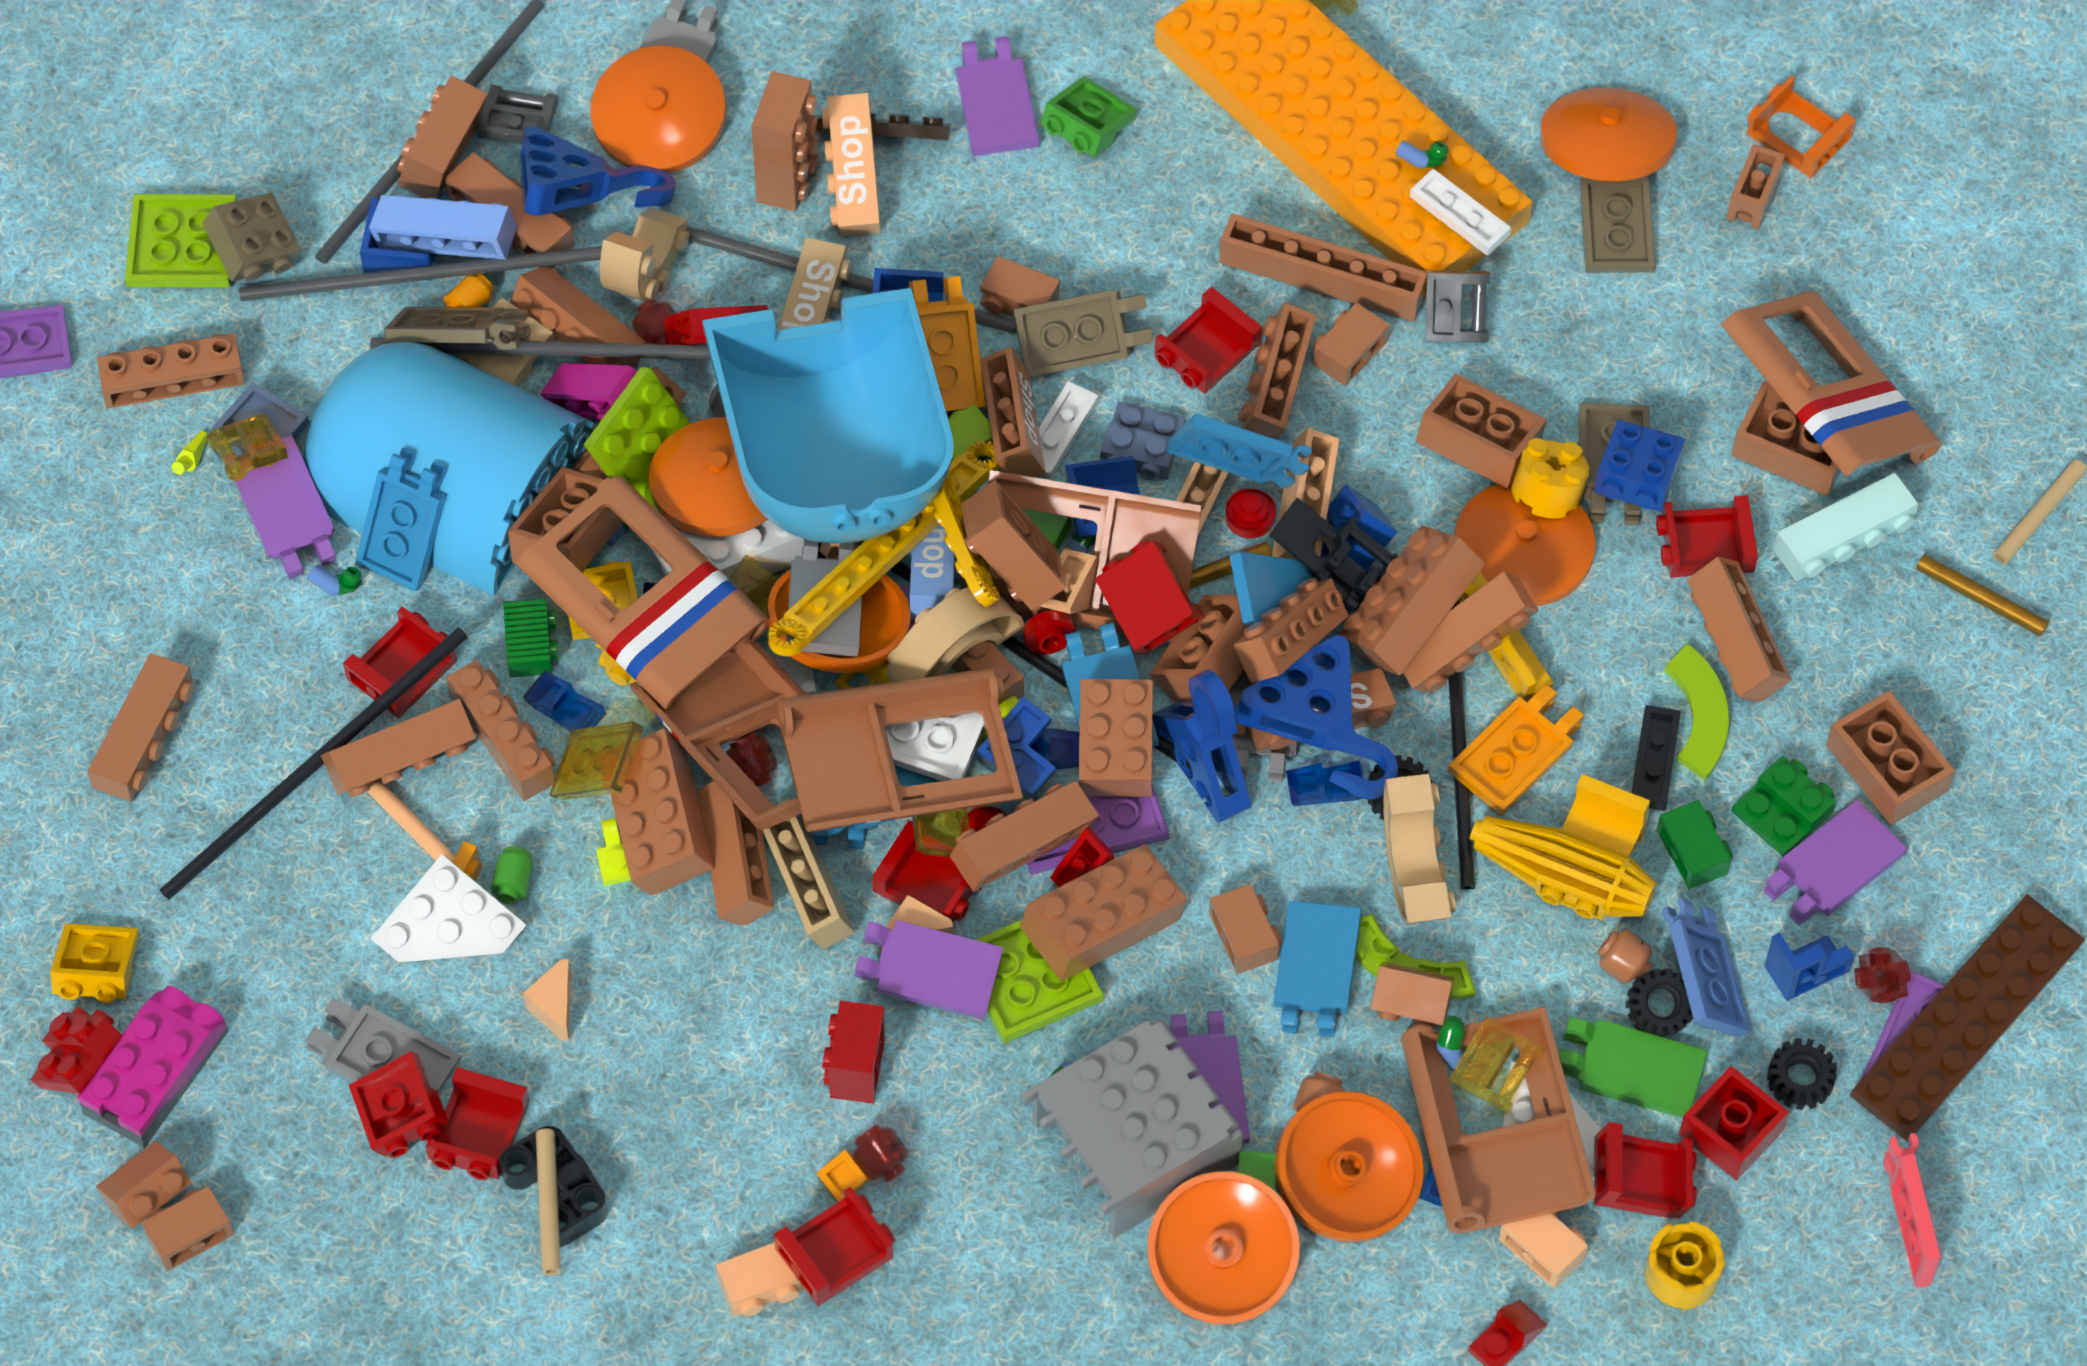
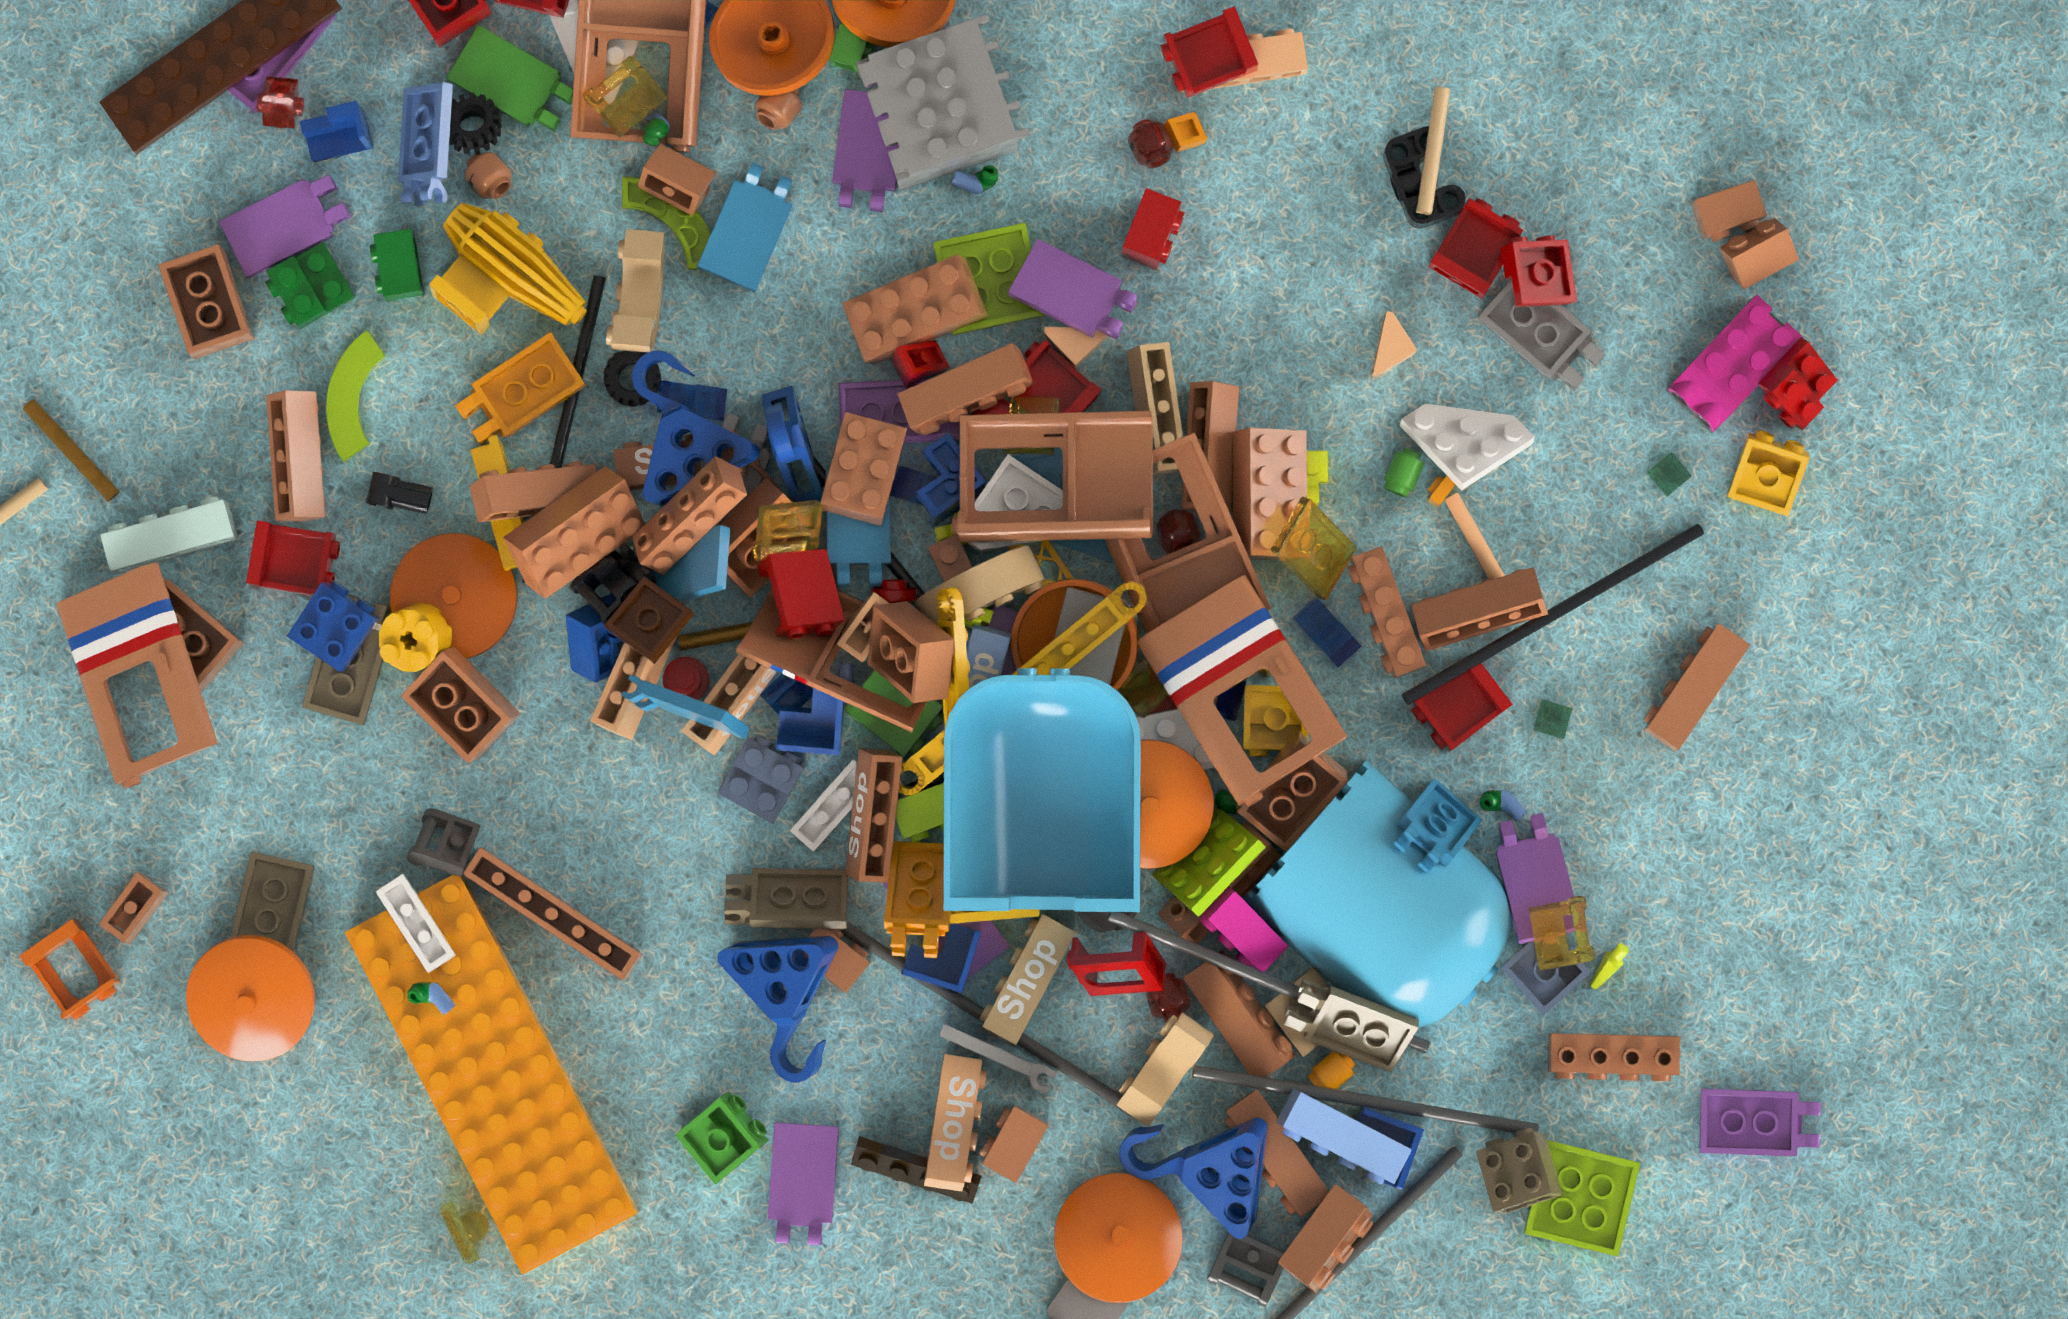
camera: 165 degrees left, 25 degrees up
(209, 942) = (1669, 474): none -> clear green tile
(296, 673) = (1552, 719): none -> clear green tile
(528, 637) = (1347, 698): green brick -> none
(863, 235) = (999, 1055): none -> light grey tile
(1077, 257) = (763, 984): none -> blue piece
(1181, 648) = (787, 521): none -> clear yellow plate
(1209, 342) = (678, 865): red panel -> none
(1244, 928) = (799, 276): nougat brick -> none
(1278, 371) = (625, 809): nougat brick -> none
(1304, 522) = (649, 620): none -> reddish brown plate
(1350, 343) = (550, 832): nougat brick -> none
(1626, 622) = (392, 492): none -> black piece
(1656, 755) = (405, 357): black plate -> none
(1807, 1055) = (361, 24): black tyre -> none

